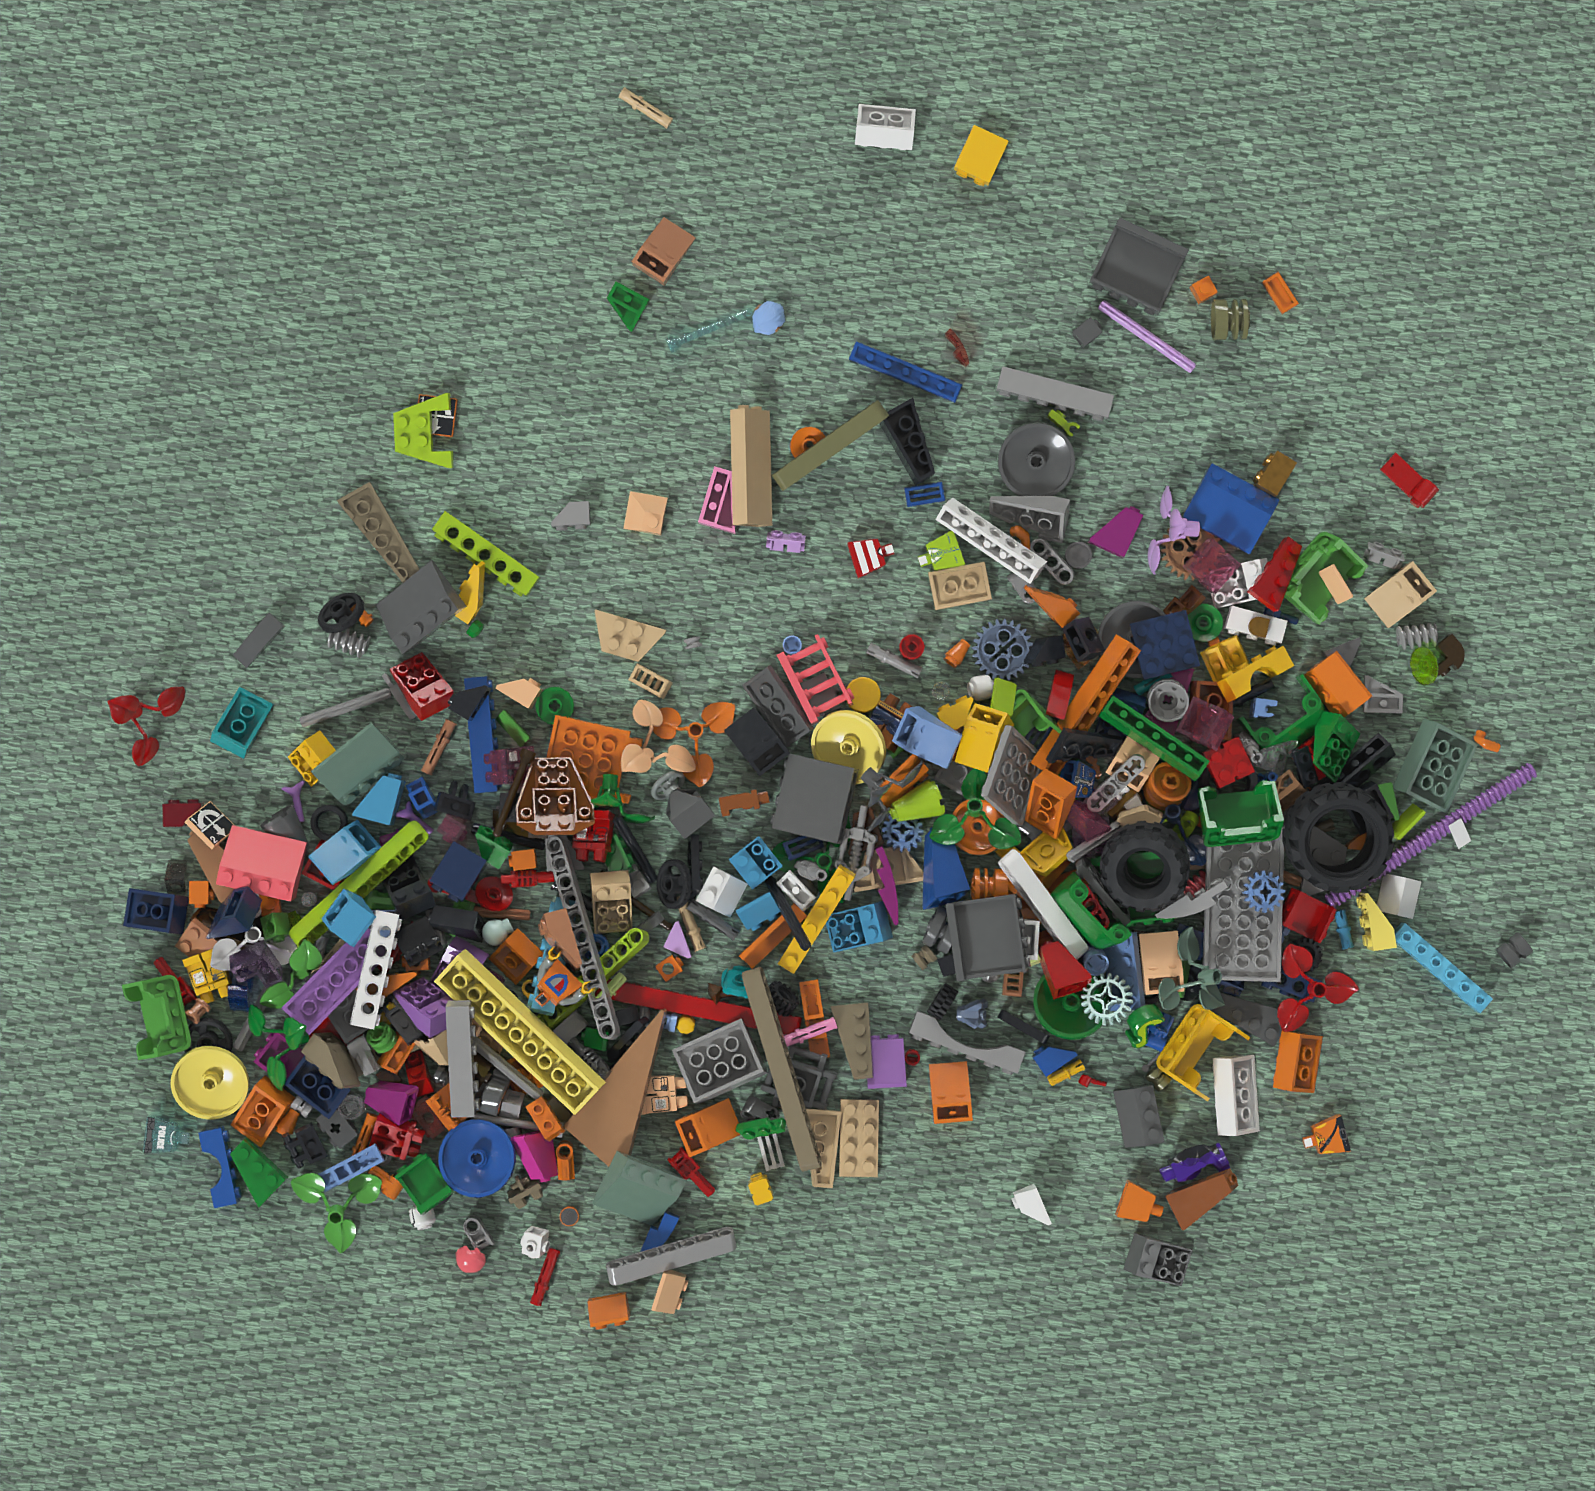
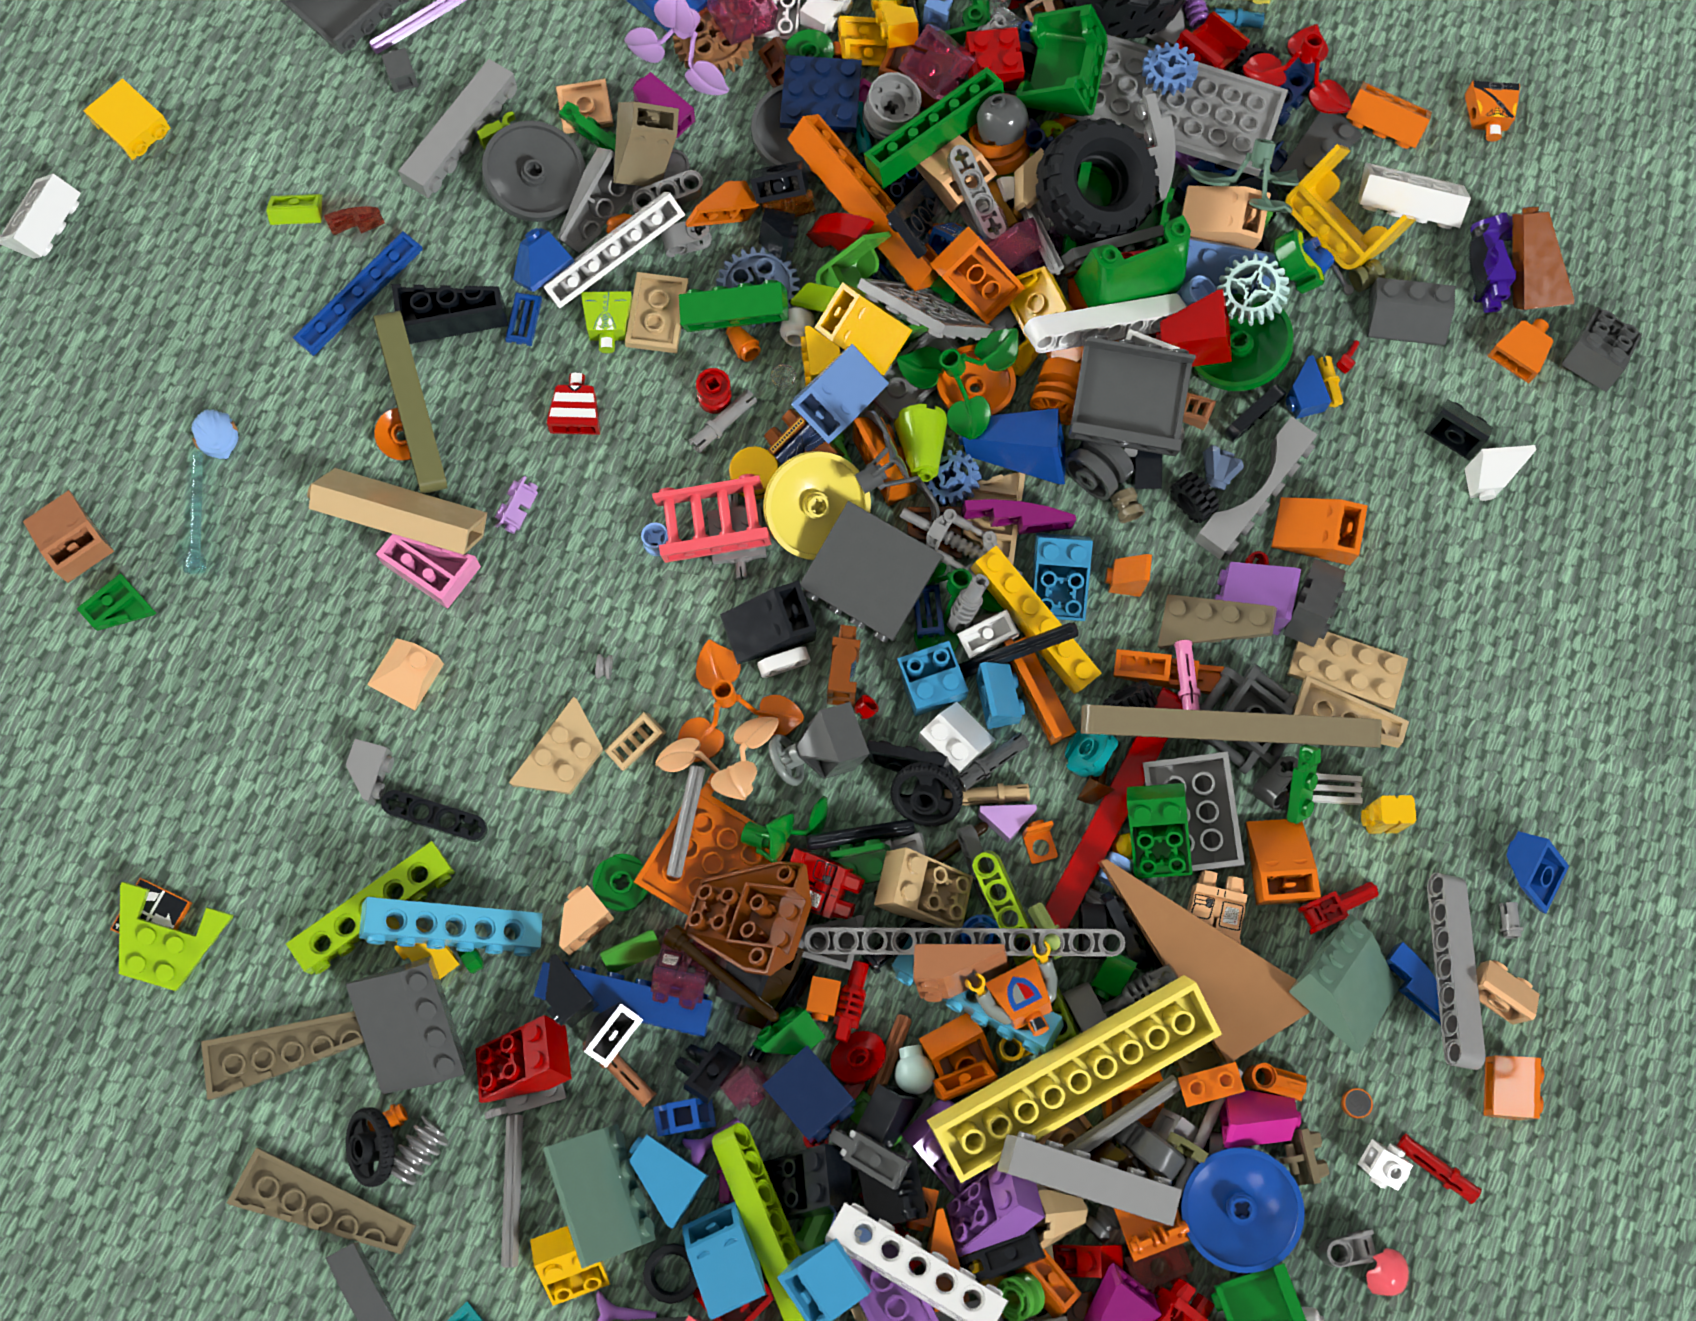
camera: 75 degrees left, 15 degrees down
(299, 579) = (297, 1196): none -> dark tan wing
(432, 921) = (871, 1157): none -> dark grey hinge
(456, 734) = (610, 1033): none -> flat silver slope
(499, 964) = (964, 1080): none -> orange slope
(502, 1114) = (1187, 1148): none -> olive tile
(505, 657) = (524, 924): none -> medium azure brick
(561, 569) = (433, 819): none -> black beam
(601, 735) = (685, 821): none -> light grey axle
(698, 1041) = (1159, 830): none -> green slope
(719, 1286) = (1510, 920): none -> light grey pin
(723, 828) = (866, 707): none -> red hinge
(735, 760) = (783, 662): none -> white beam
(757, 1295) = (1537, 868): none -> blue slope
(777, 706) = (728, 580): dark grey plate -> none
(871, 971) = (1129, 575): none -> orange slope
(893, 1104) = (1316, 603): none -> dark grey wedge
(954, 301) = (295, 209): none -> lime slope
(966, 492) = (539, 259): none -> blue slope
(975, 640) = (733, 306): none -> green brick
(1058, 1172) = (1459, 429): none -> black slope
(1078, 534) = (643, 142): none -> dark tan slope
(1084, 488) = (587, 127): none -> green hinge
(1106, 475) = (590, 98): none -> light nougat tile
(1173, 784) = (1002, 119): none -> dark grey cylinder

